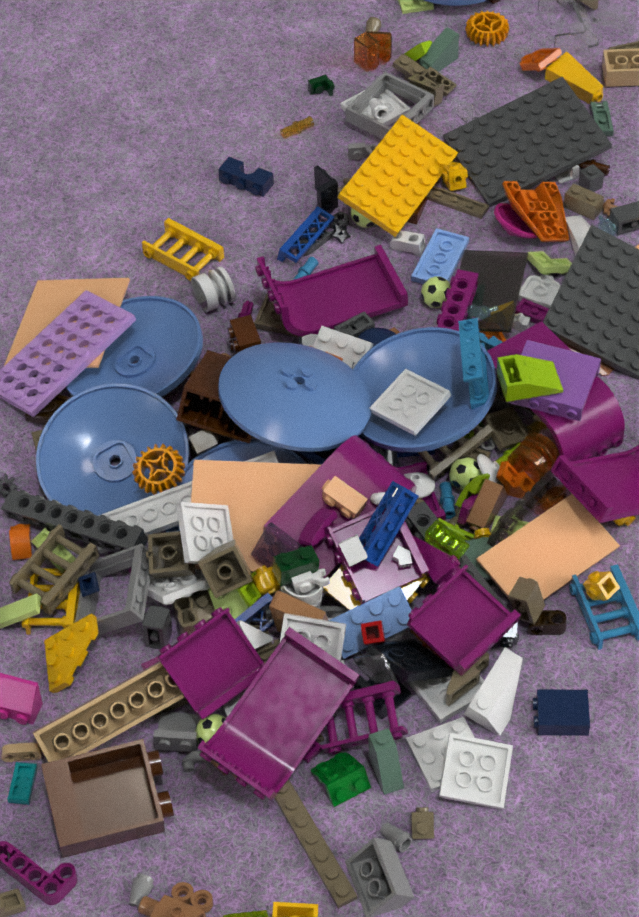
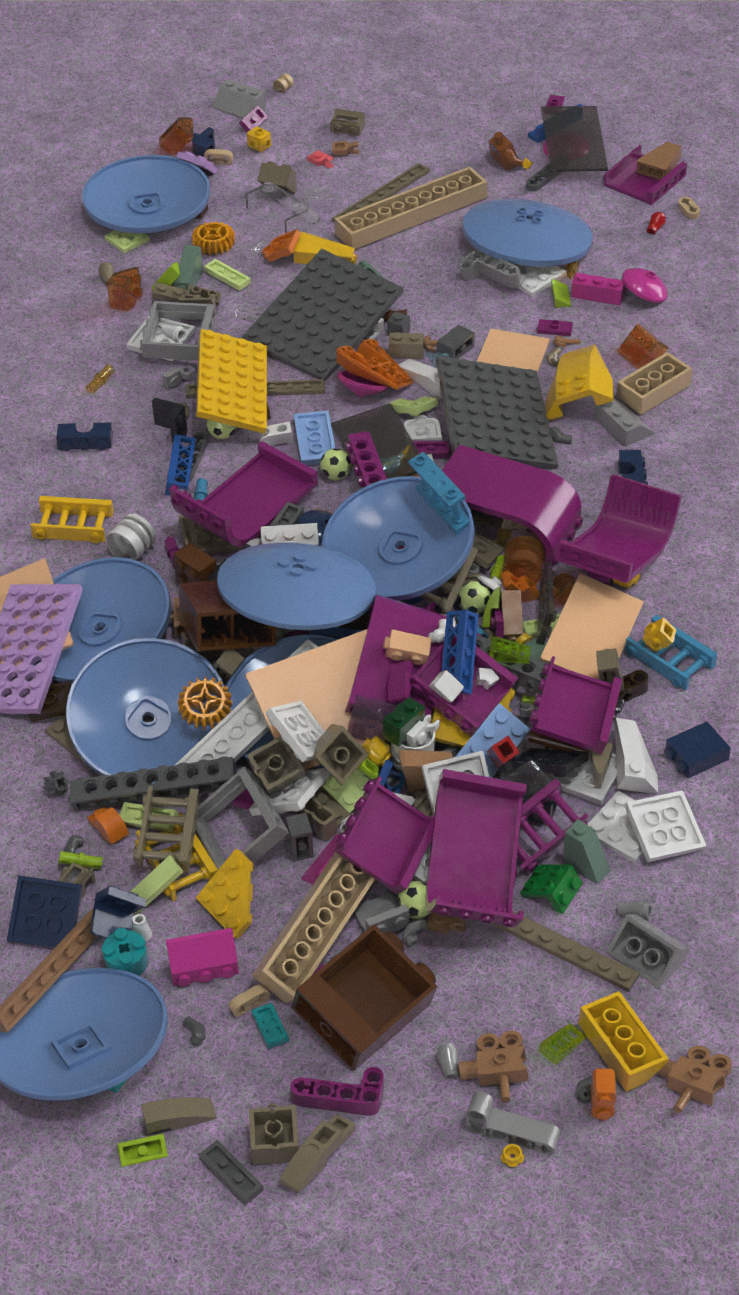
camera: 30 degrees left, 5 degrees down
(88, 584) = (210, 828): dark blue slope -> none
(320, 84) = (95, 335): dark green bracket -> none
(340, 233) = (208, 450): black piece -> none
(410, 402) = (401, 549): white plate -> none
(422, 823) = (650, 889): dark tan bracket -> none
(438, 562) = (525, 671): magenta slope -> none
(454, 176) = (278, 366): yellow brick -> none
(475, 69) = (227, 274): none -> yellowish green plate
(527, 377) = (492, 487): lime slope -> none
(576, 377) = (510, 484): medium lavender panel -> none

